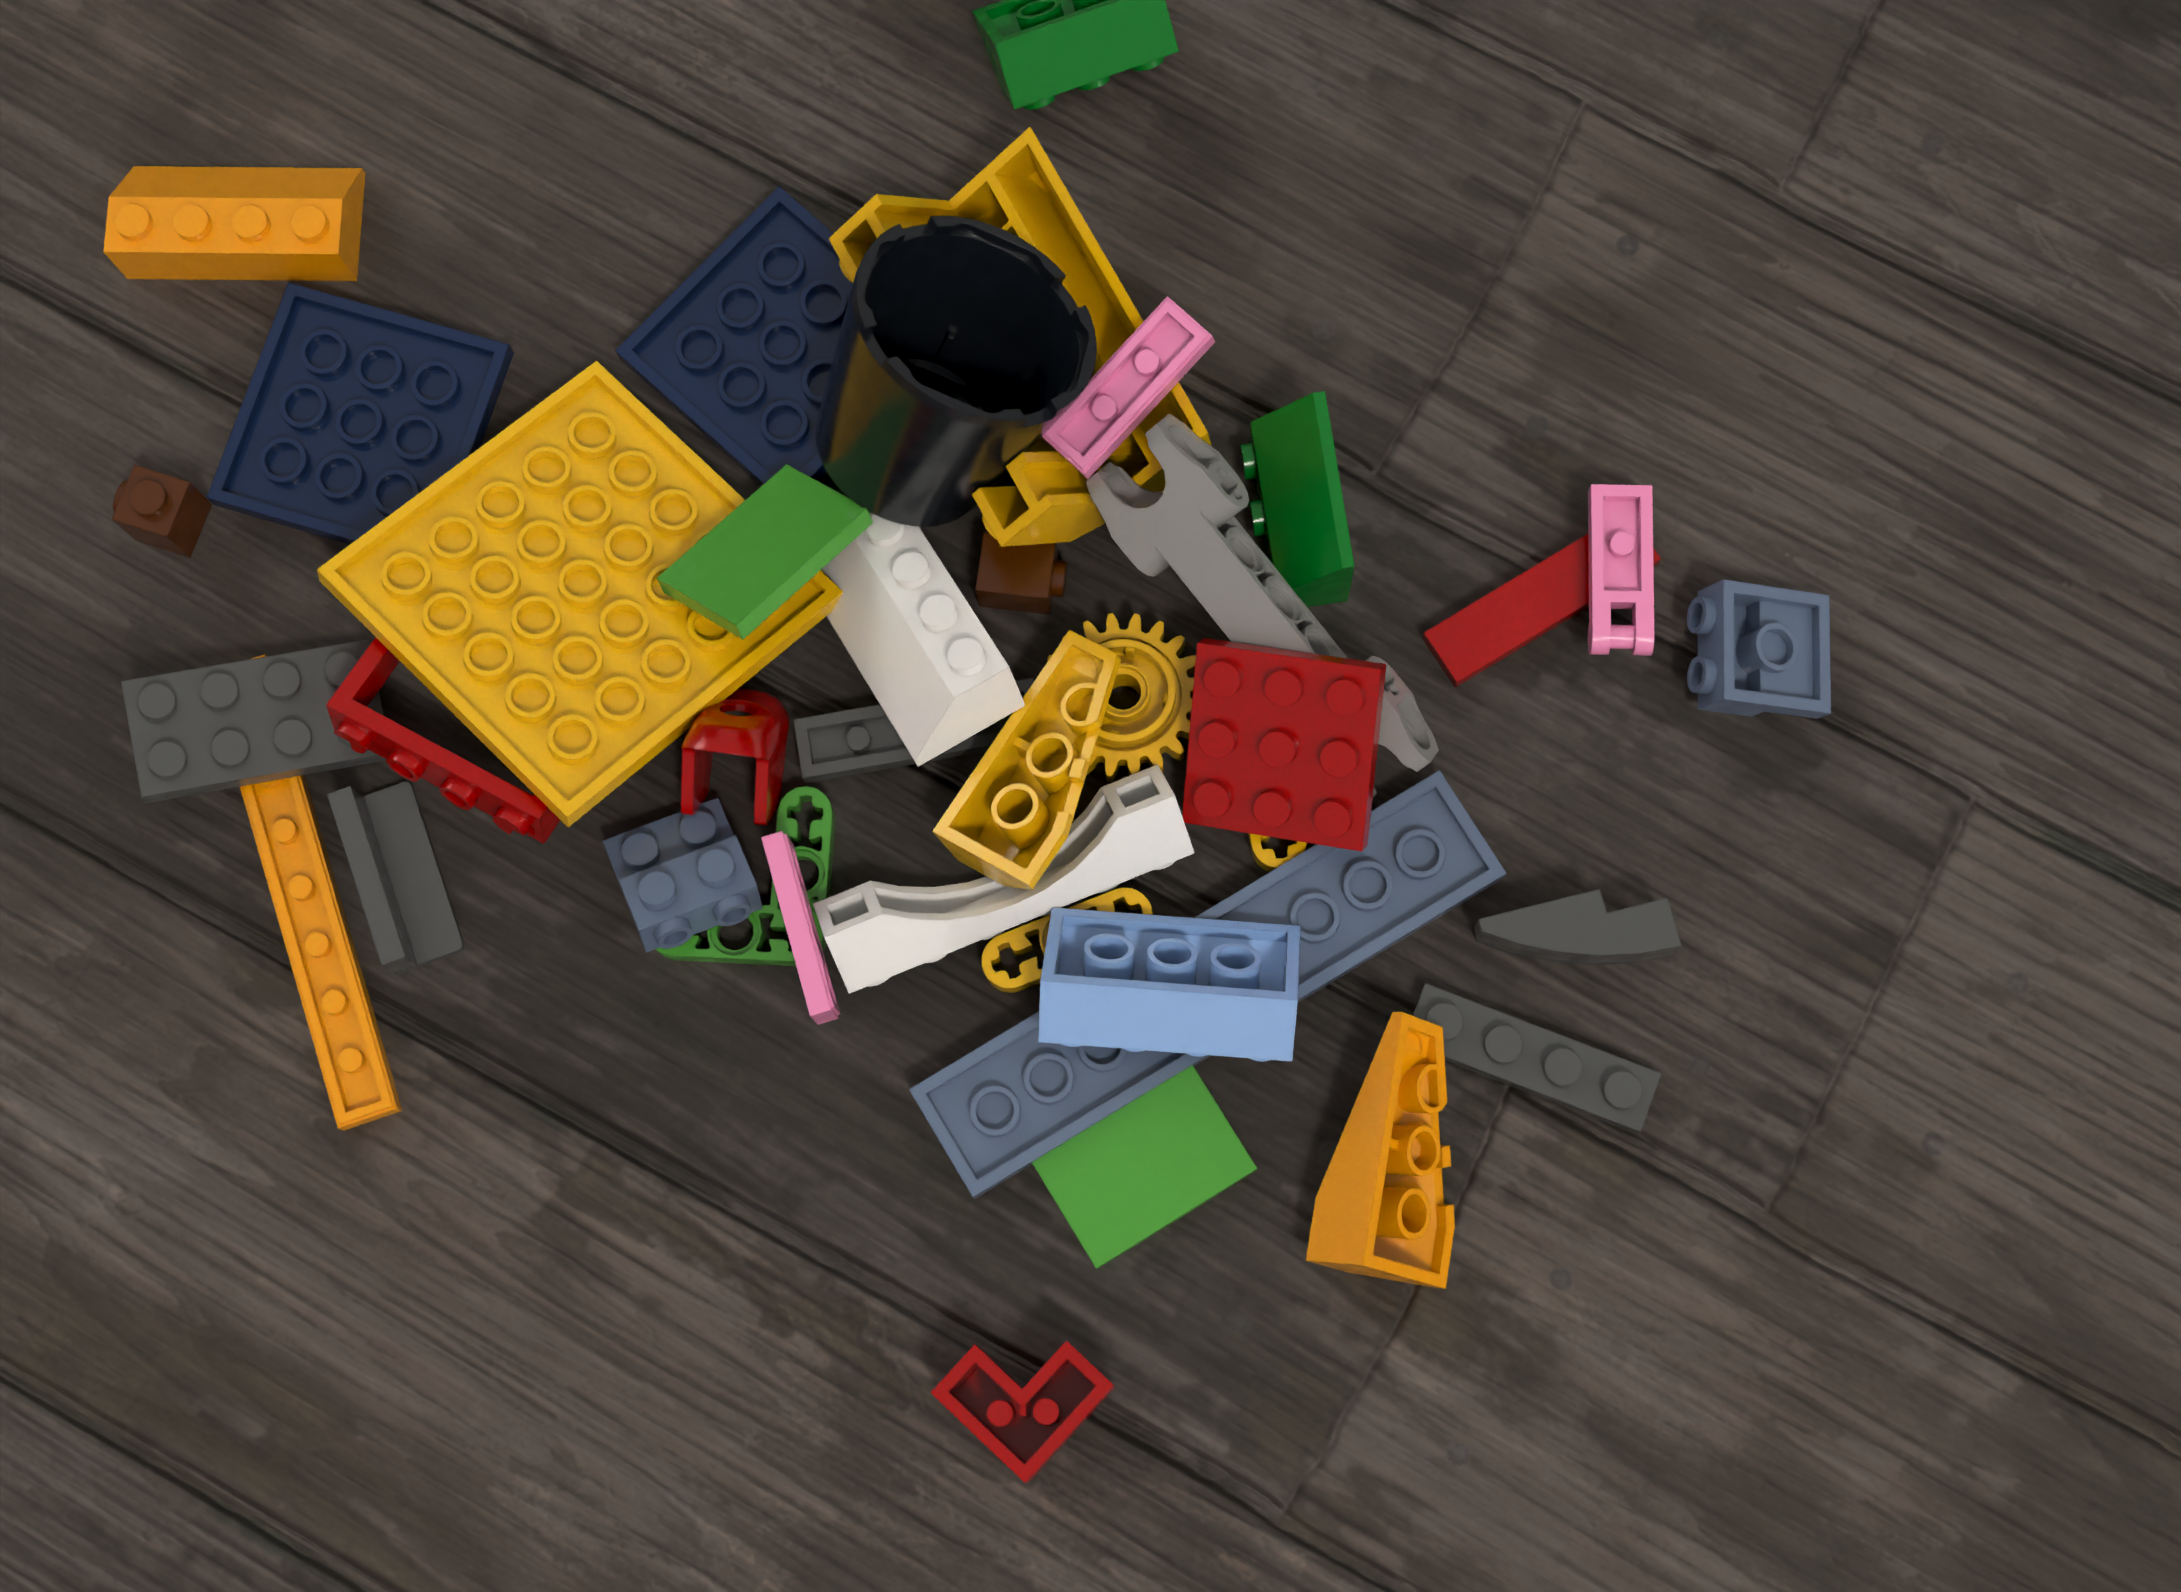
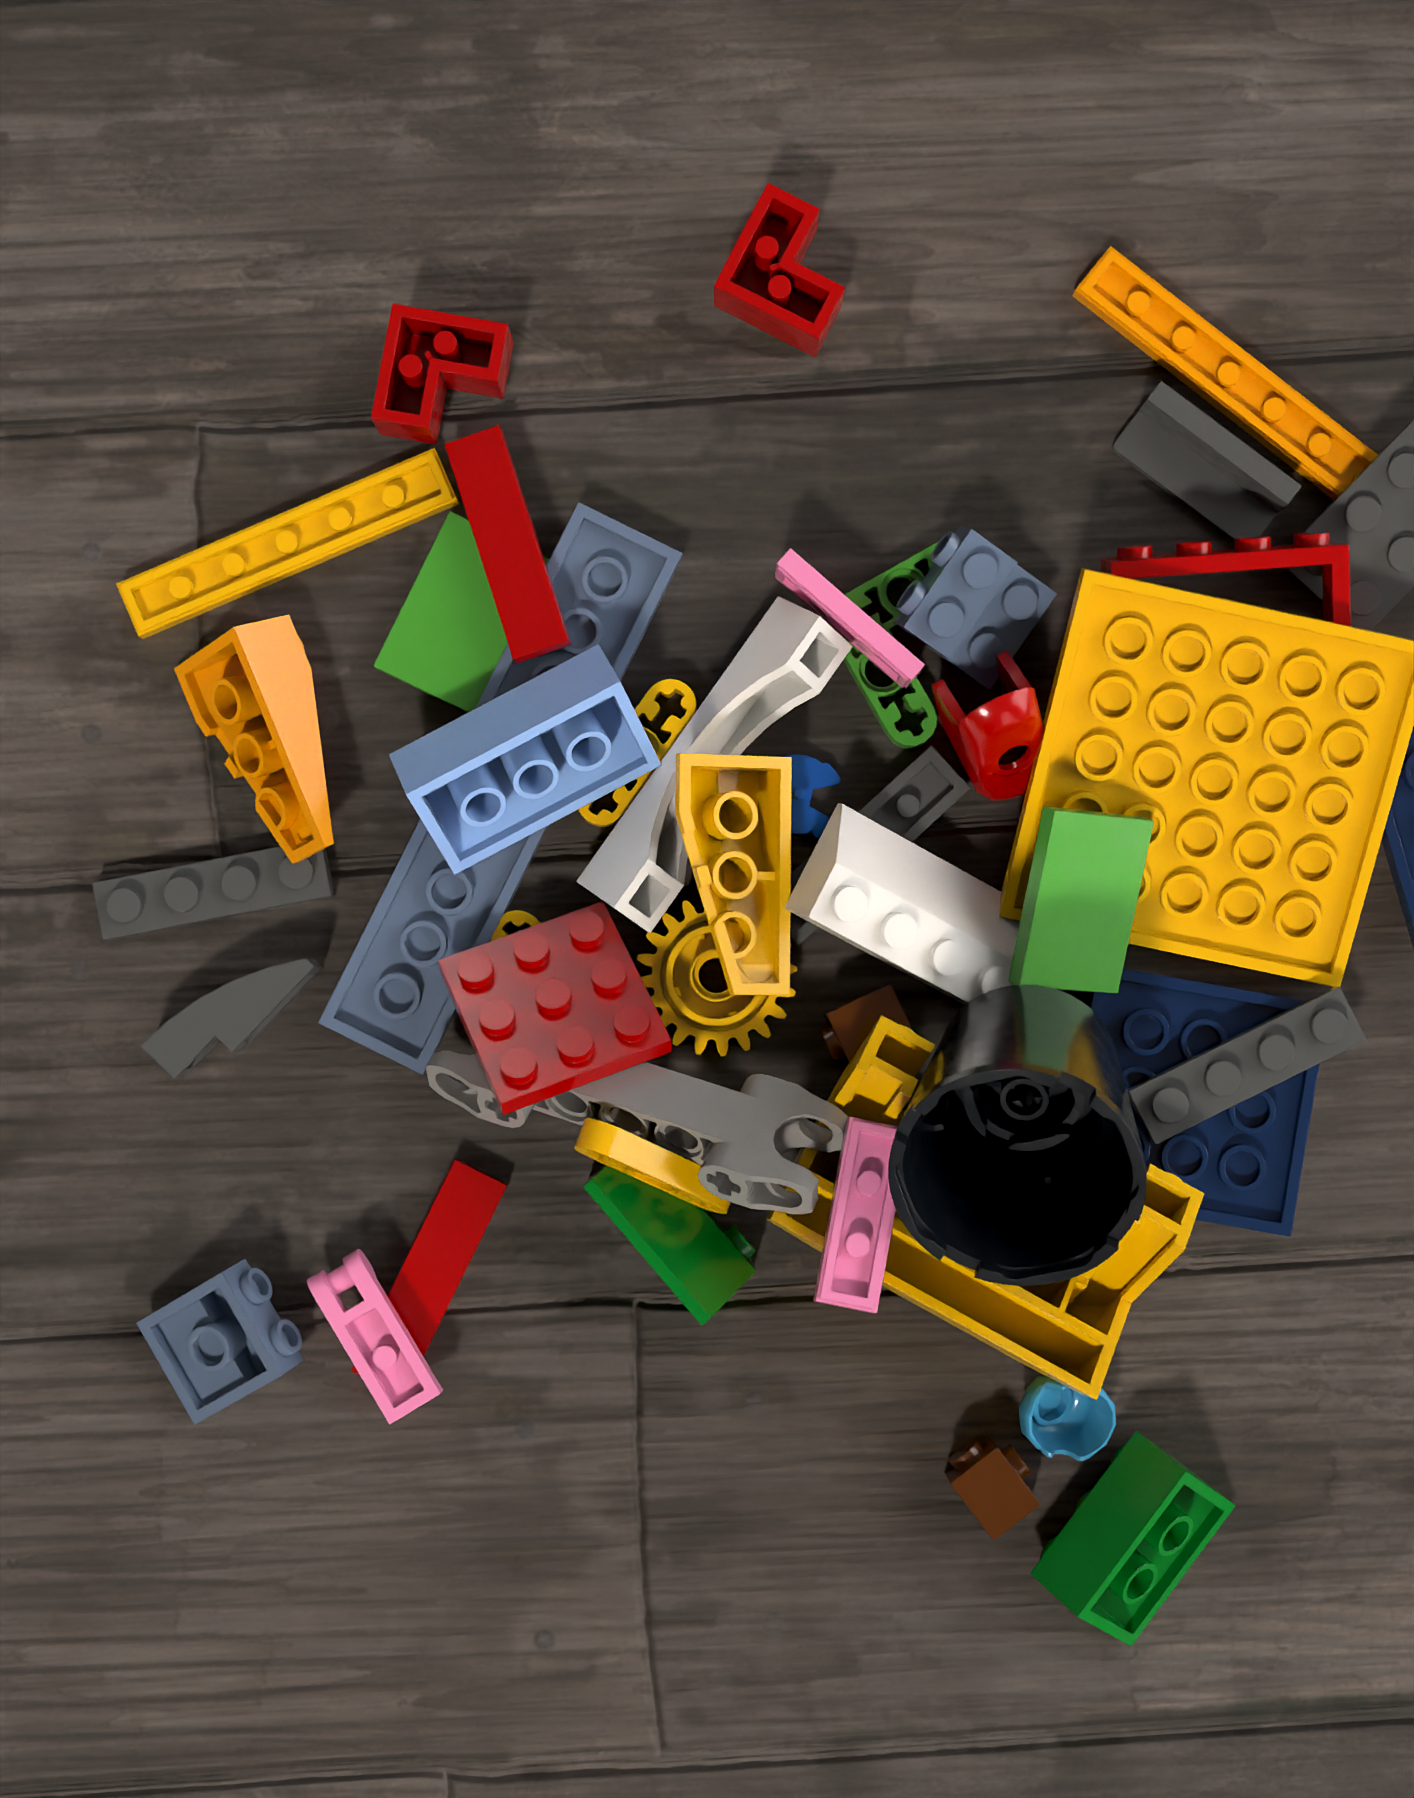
camera: 140 degrees right, 10 degrees up
(667, 1289) = (767, 282): none -> red brick
(717, 341) = (1245, 1065): none -> dark grey plate
(922, 820) = (806, 776): none -> blue piece
(1061, 1198) = (508, 544): none -> red tile
(1074, 151) = (1065, 1420): none -> dark azure hair
(1163, 139) = (992, 1484): none -> reddish brown brick
(1267, 1338) = (287, 544): none -> yellow tile
(1286, 555) = (646, 1163): none -> yellow beam

